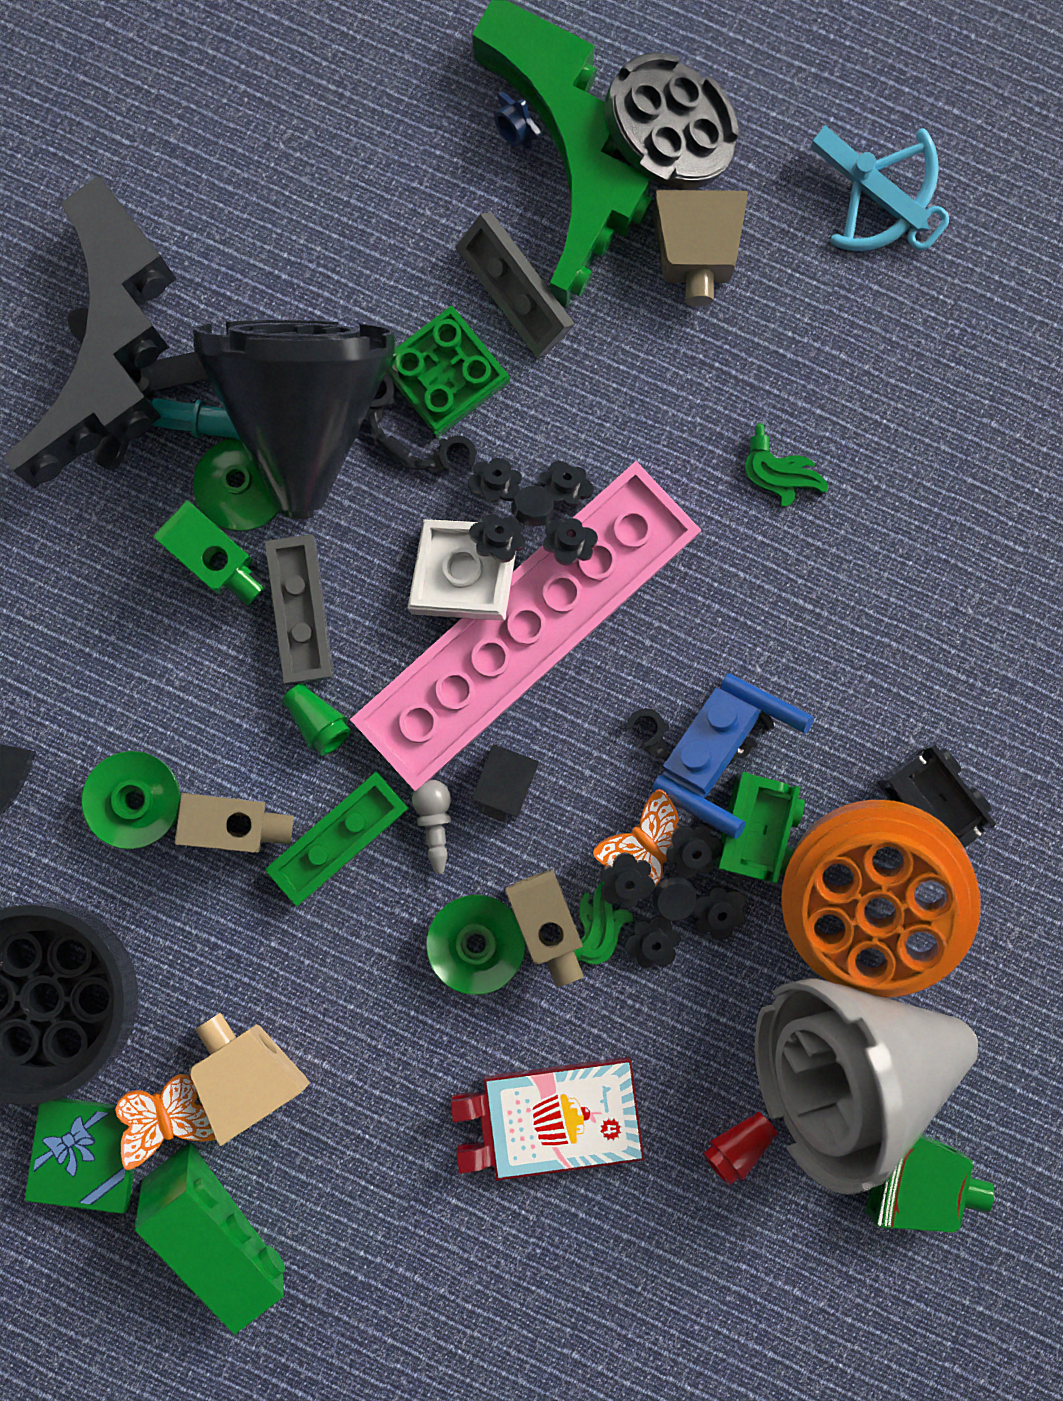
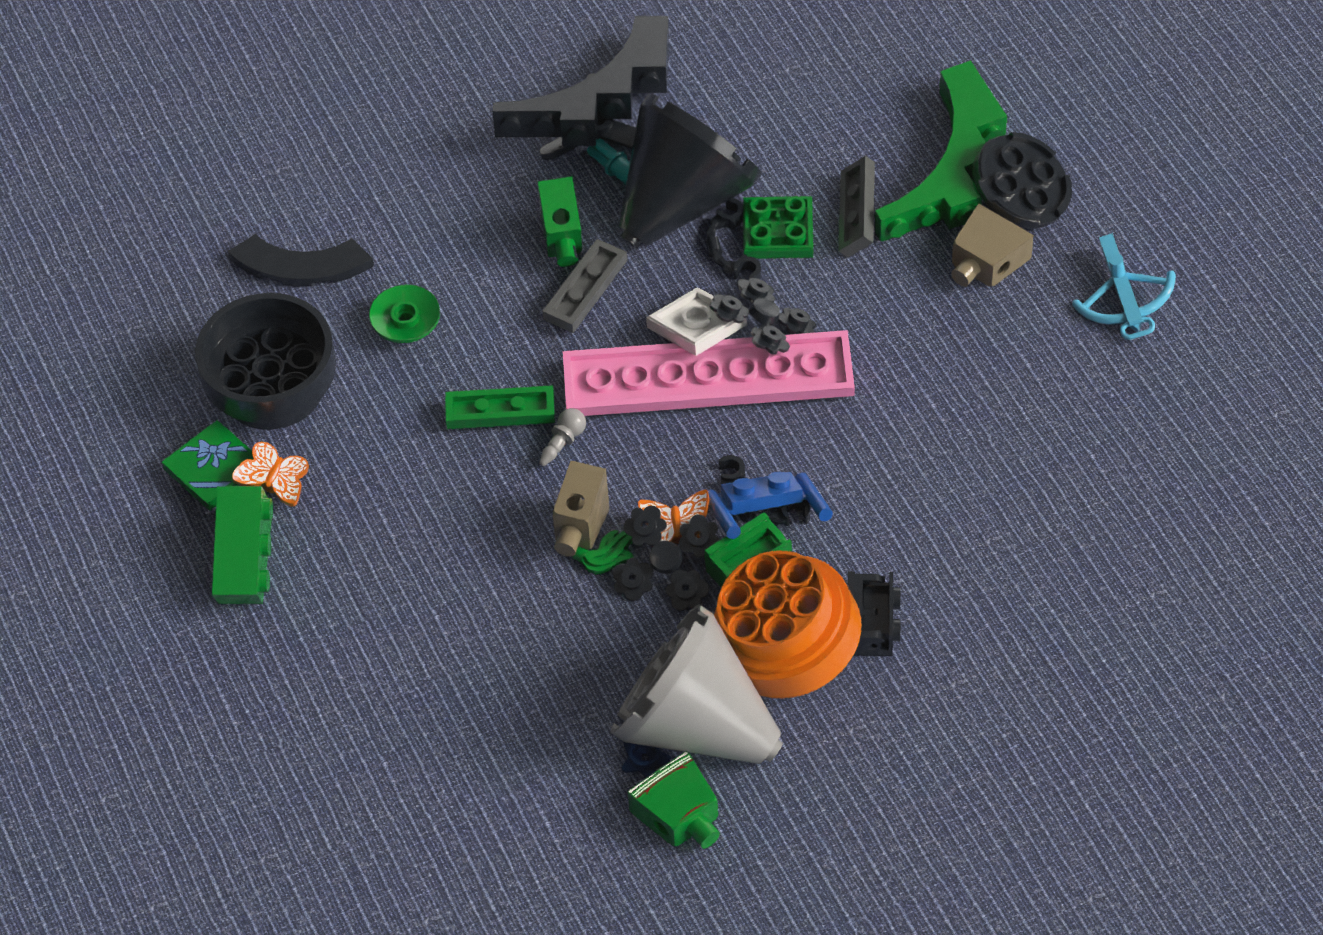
camera: 40 degrees right, 30 degrees down
(206, 823) = (446, 351): dark tan torso -> none
(226, 506) = (601, 211): green dish -> none
(242, 1077) = (334, 486): tan torso -> none
(317, 721) = (543, 345): green cone -> none
(470, 970) = (524, 495): green dish -> none
(504, 783) = (621, 439): black brick -> none
(514, 122) = (929, 130): dark blue plate -> none
(552, 1120) = (487, 628): tile -> none
(740, 1147) = (584, 713): red cone -> none
(780, 474) = (932, 397): green piece -> none

